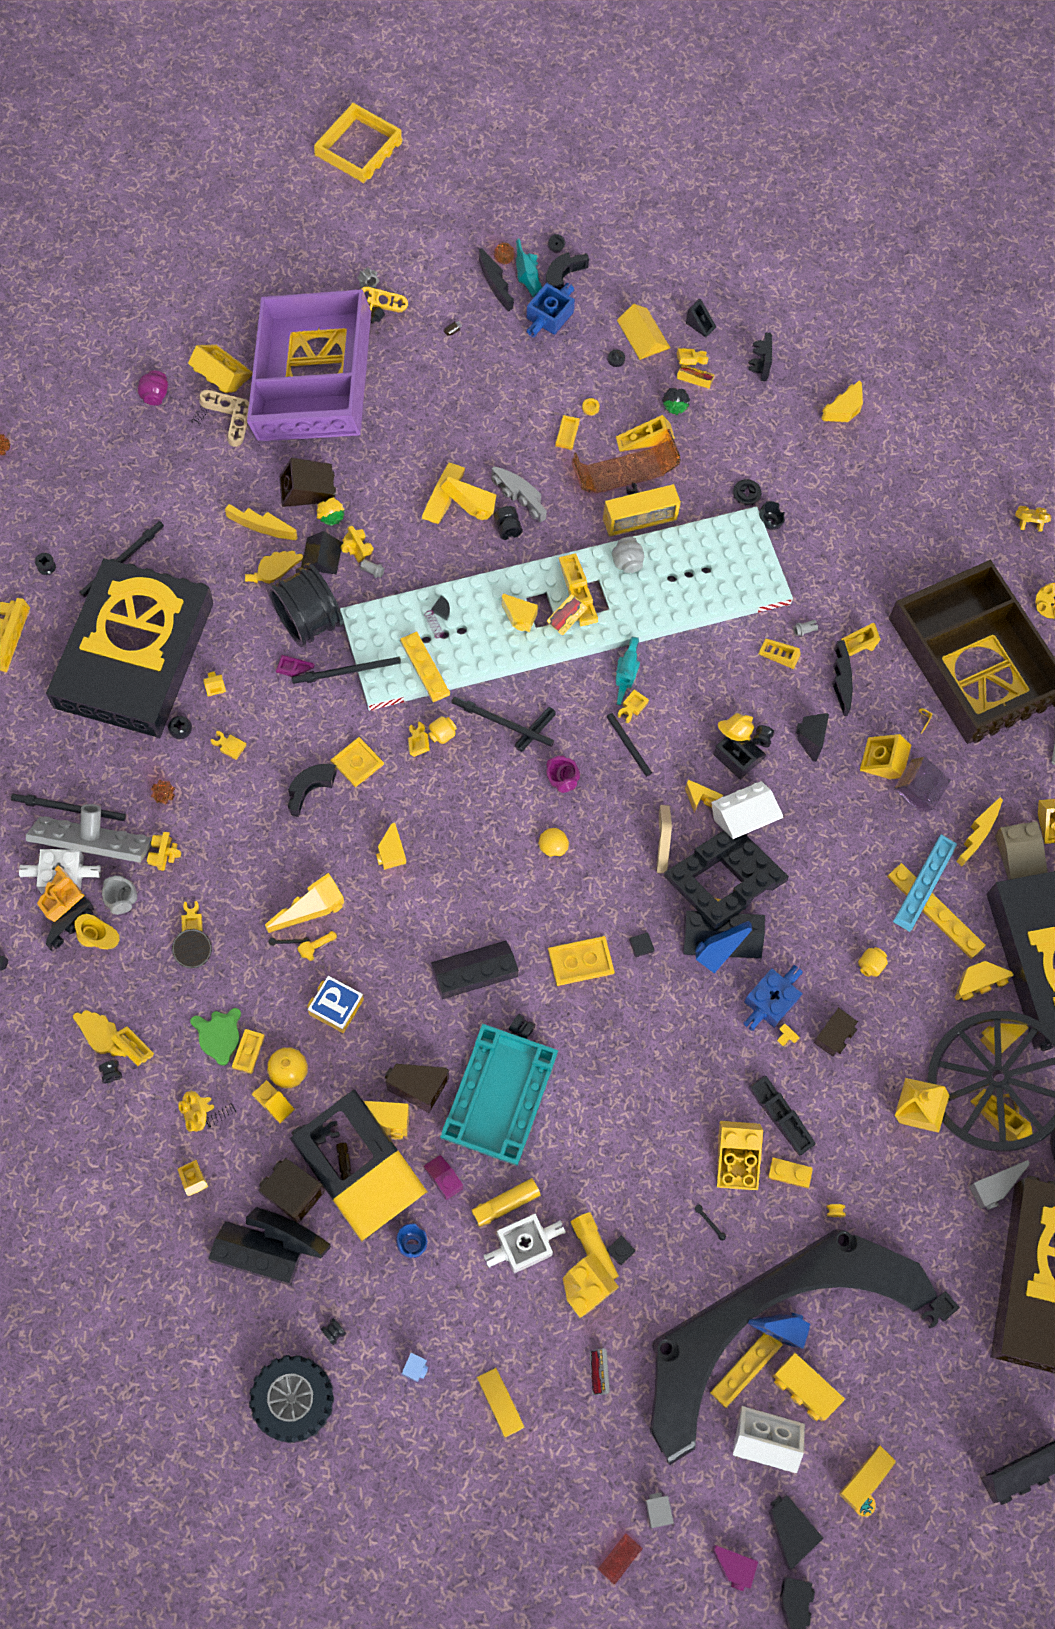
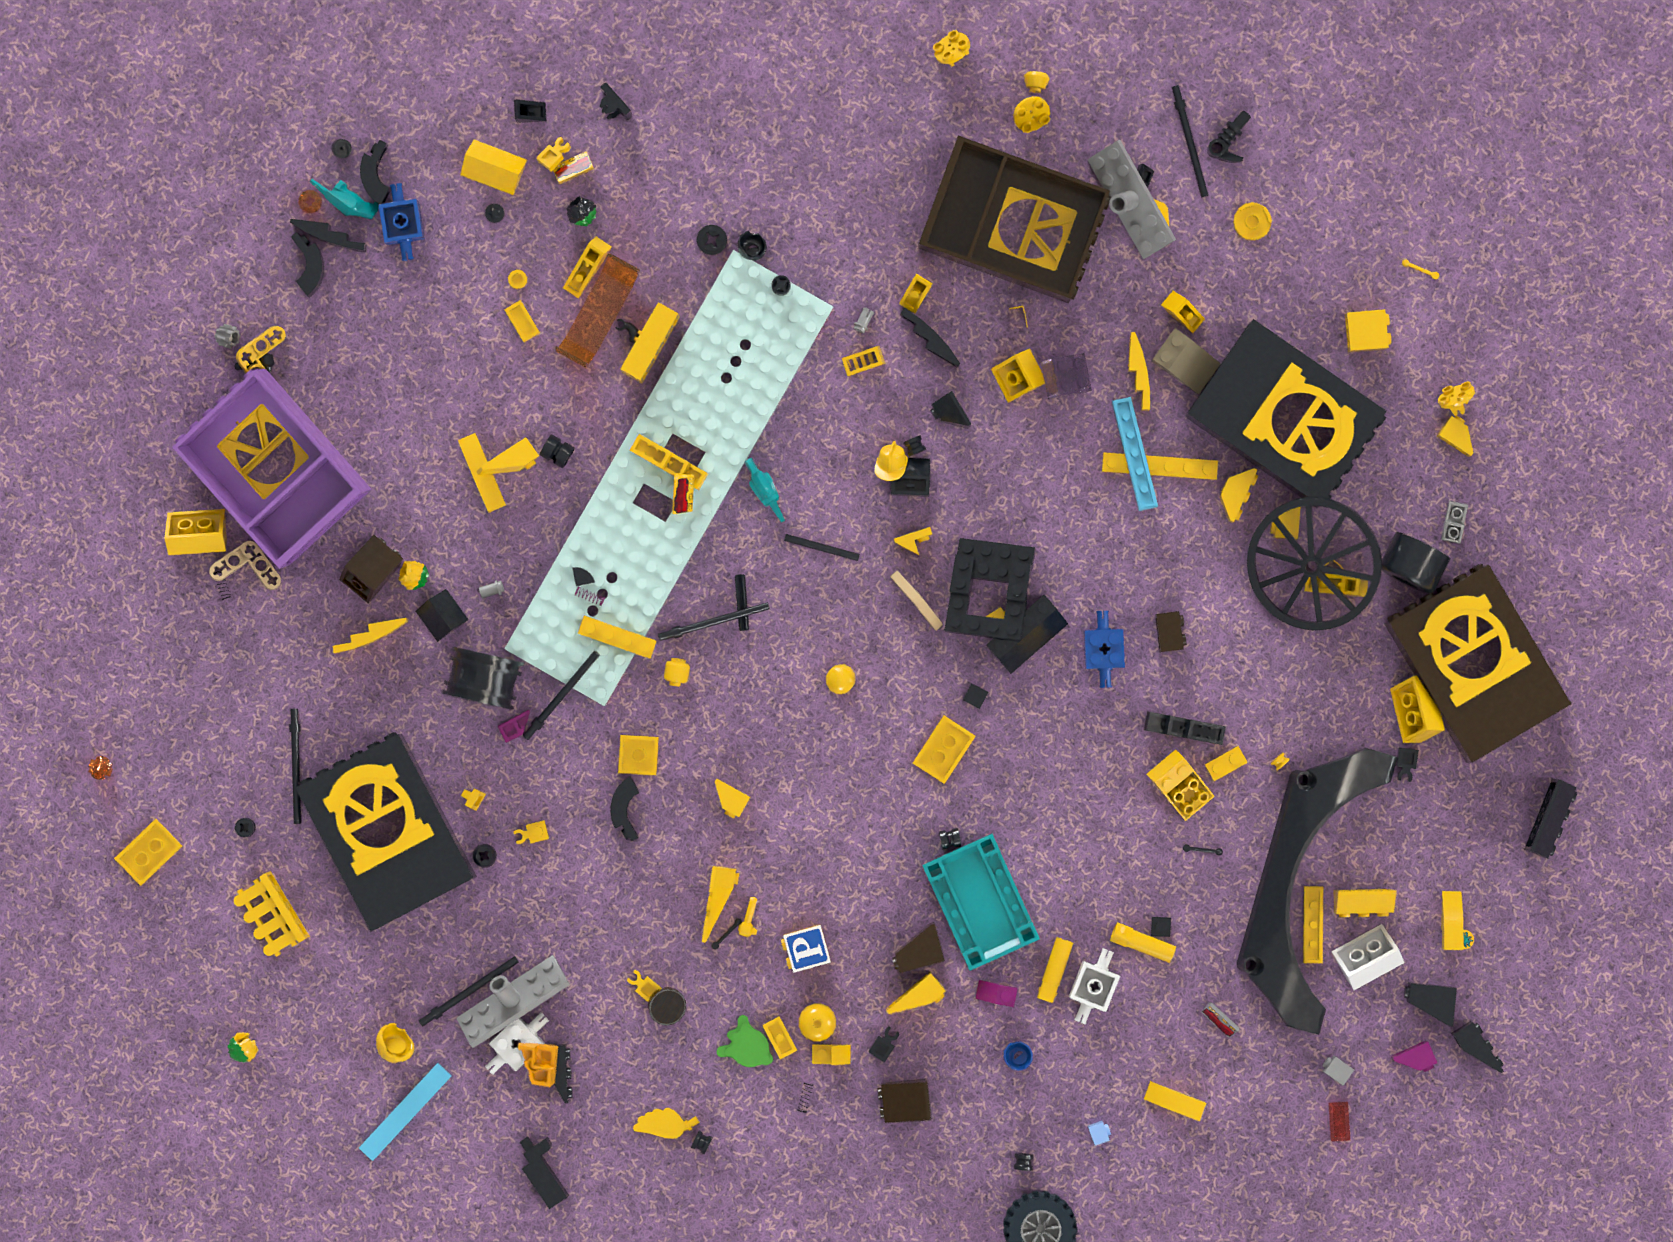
camera: 40 degrees left, 20 degrees up
(95, 933) = (590, 1060): yellow piece -> none
(119, 894) = (576, 1019): light grey hair -> none
(128, 1041) = (697, 1113): yellow tile -> none
(153, 387) = (164, 602): magenta hair -> none
(160, 859) = (576, 966): yellow hips -> none
(162, 792) = (525, 916): clear orange gear -> none
(192, 1178) = (831, 1156): yellow slope -> none
(194, 1110) = (787, 1113): yellow plate -> none
(254, 1254) = (923, 1161): black slope -> none
(274, 567) = (416, 659): yellow animal -> none
(294, 1236) = (937, 1128): black slope -> none
(341, 125) = (51, 214): yellow window -> none
(344, 1161) = (920, 1047): dark brown axle -> none
(353, 544) = (459, 584): yellow hips -> none
(376, 1189) = (964, 1048): piece -> none
(418, 741) = (668, 696): yellow plate -> none
(452, 328) = (338, 313): dark brown piece -> none
(466, 289) = (314, 270): none -> black arch
(475, 969) = (875, 828): black slope -> none
(516, 487) = (531, 414): light grey slope -> none
(519, 612) = (646, 526): yellow slope -> none
(562, 773) = (798, 621): magenta hair -> none
(588, 1285) = (1162, 973): yellow slope -> none
(628, 555) = (680, 396): light grey hair -> none
(633, 704) = (795, 510): yellow plate -> none
(720, 946) = (1034, 650): blue slope -> none
(746, 810) = (958, 523): white slope -> none
(773, 547) = (783, 284): none -> black wheel
(785, 1328) = (1314, 878): blue slope -> none
(788, 1034) = (1138, 664): yellow tile -> none
(845, 405) = (717, 81): yellow slope -> none
(873, 962) = (1149, 552): yellow head -> none
(922, 1105) = (1275, 631): yellow piece -> none
(985, 1273) = (1416, 711): none -> yellow slope
(995, 1187) = (1373, 641): light grey slope -> none

